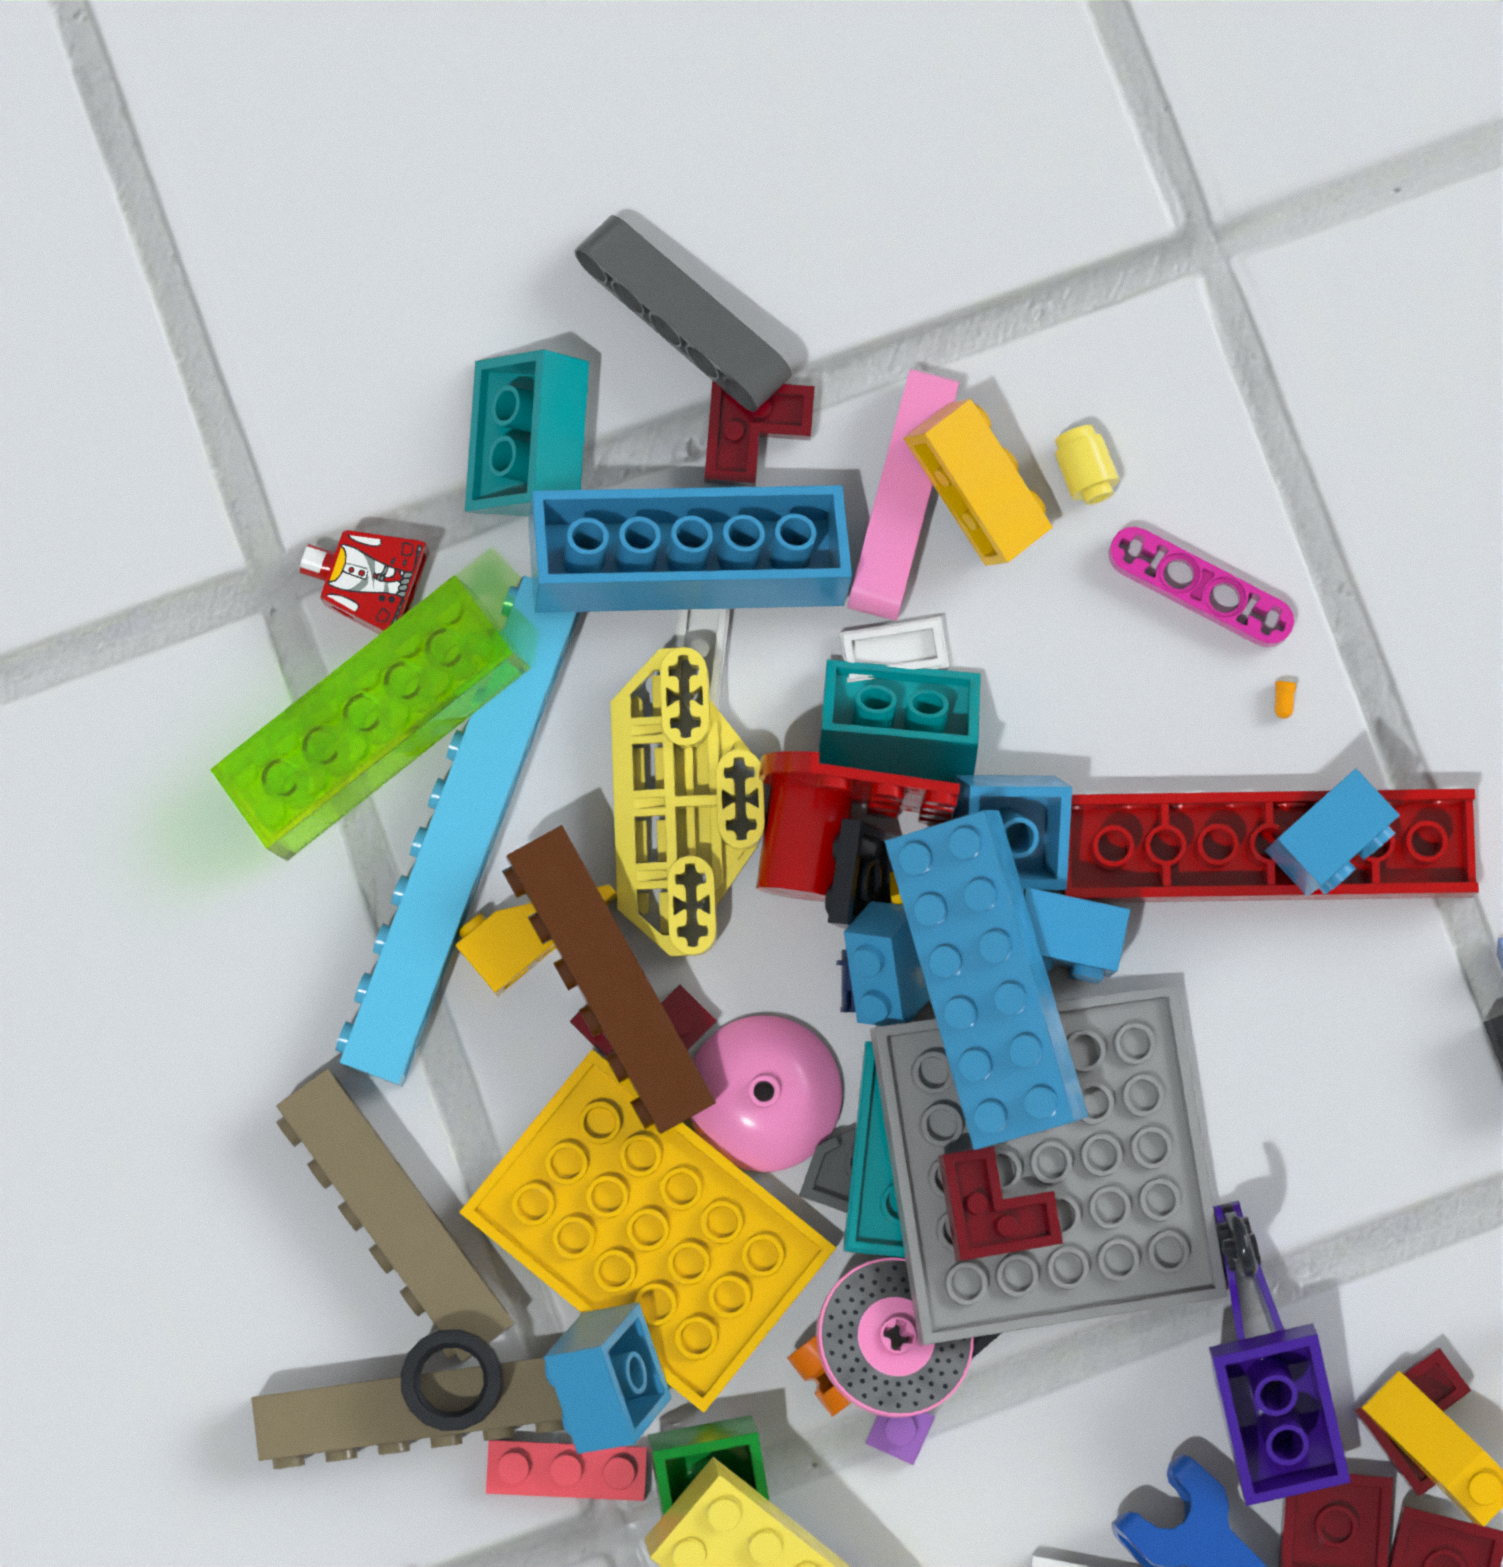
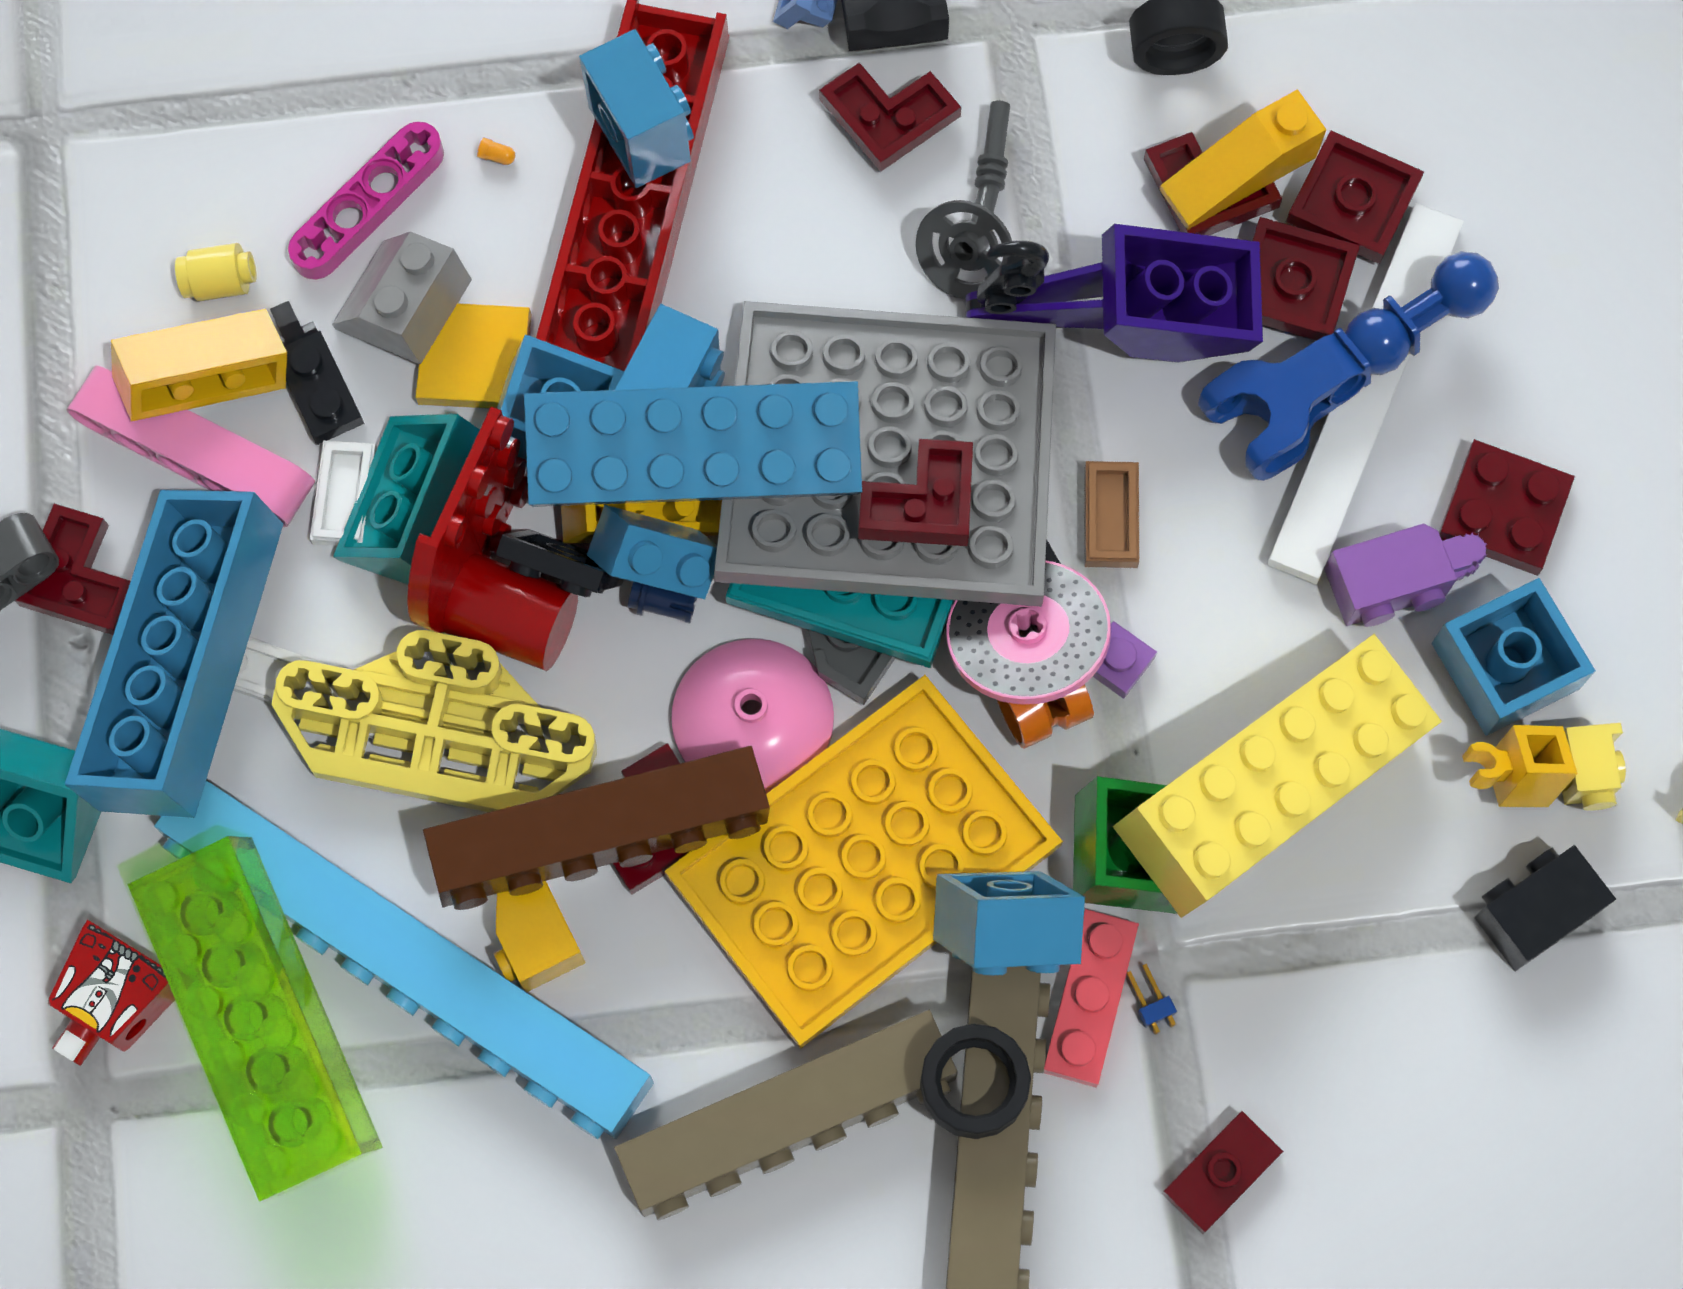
camera: 75 degrees left, 10 degrees down
(569, 1535) = (1155, 1011): none -> piece
(1003, 590) = (315, 378): none -> black hinge
(1046, 1392) = (1111, 514): none -> medium nougat tile
(1065, 731) = (472, 356): none -> yellow tile
(1102, 652) = (405, 296): none -> light grey slope
(1295, 1192) = (974, 236): none -> dark grey dish
(1406, 1084) = (885, 125): none -> dark red plate

